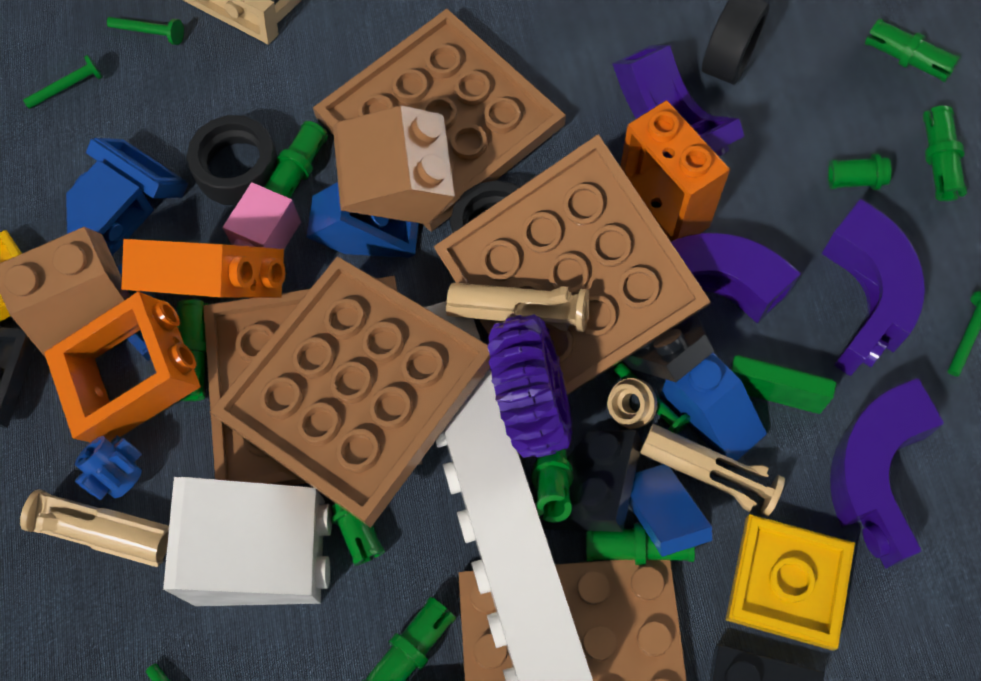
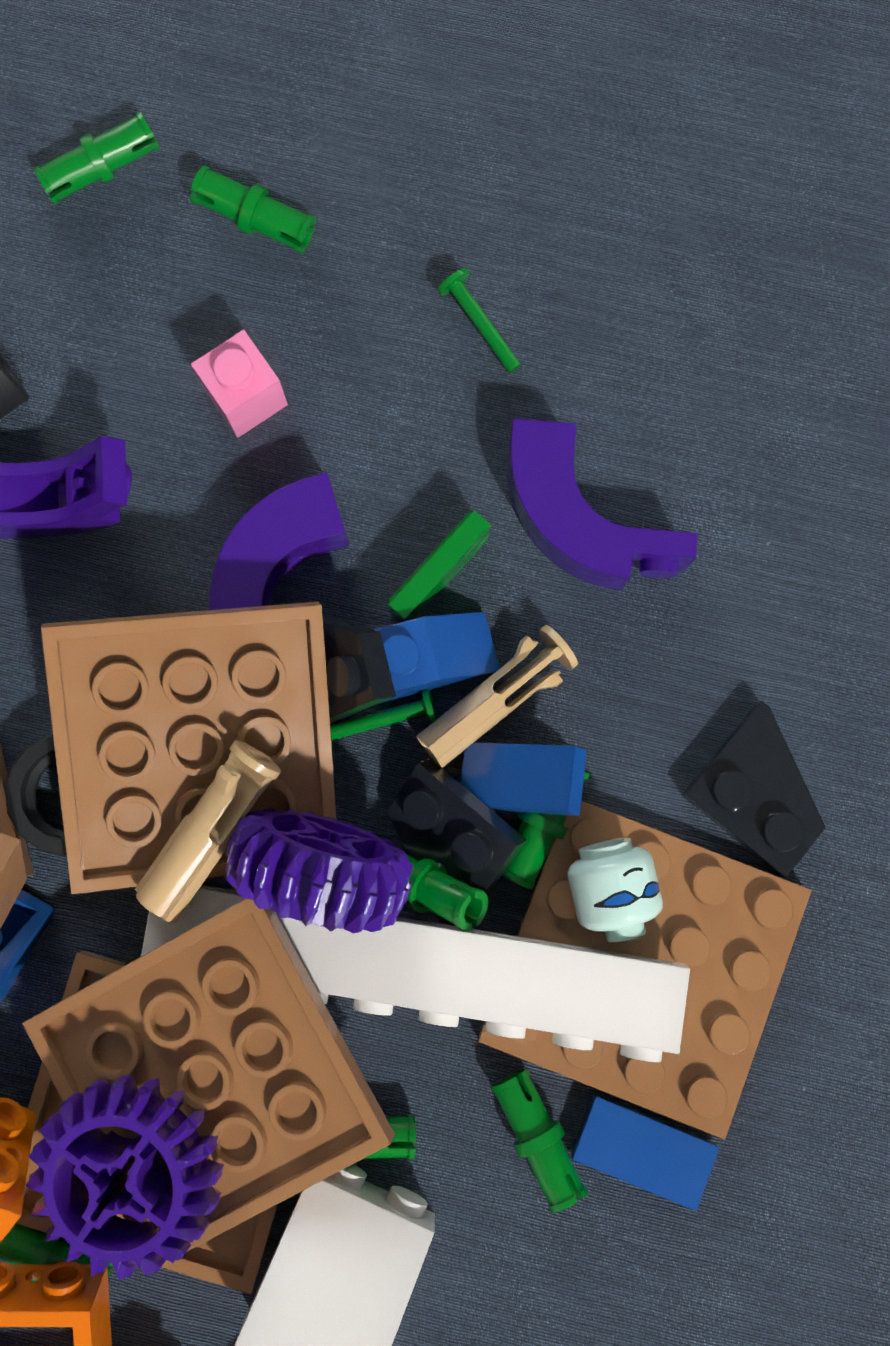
camera: 70 degrees left, 15 degrees up
(277, 371) = (85, 1167): none -> dark purple gear
(619, 403) = (379, 760): tan plate -> none
(623, 610) = (615, 889): none -> light aqua head
(685, 184) = (103, 549): orange window -> none
(791, 582) = (656, 682): yellow plate -> none
(823, 197) = (240, 383): none -> bright pink brick
(859, 172) = (228, 315): green pin -> none
(890, 275) = (377, 368): dark purple arch -> none

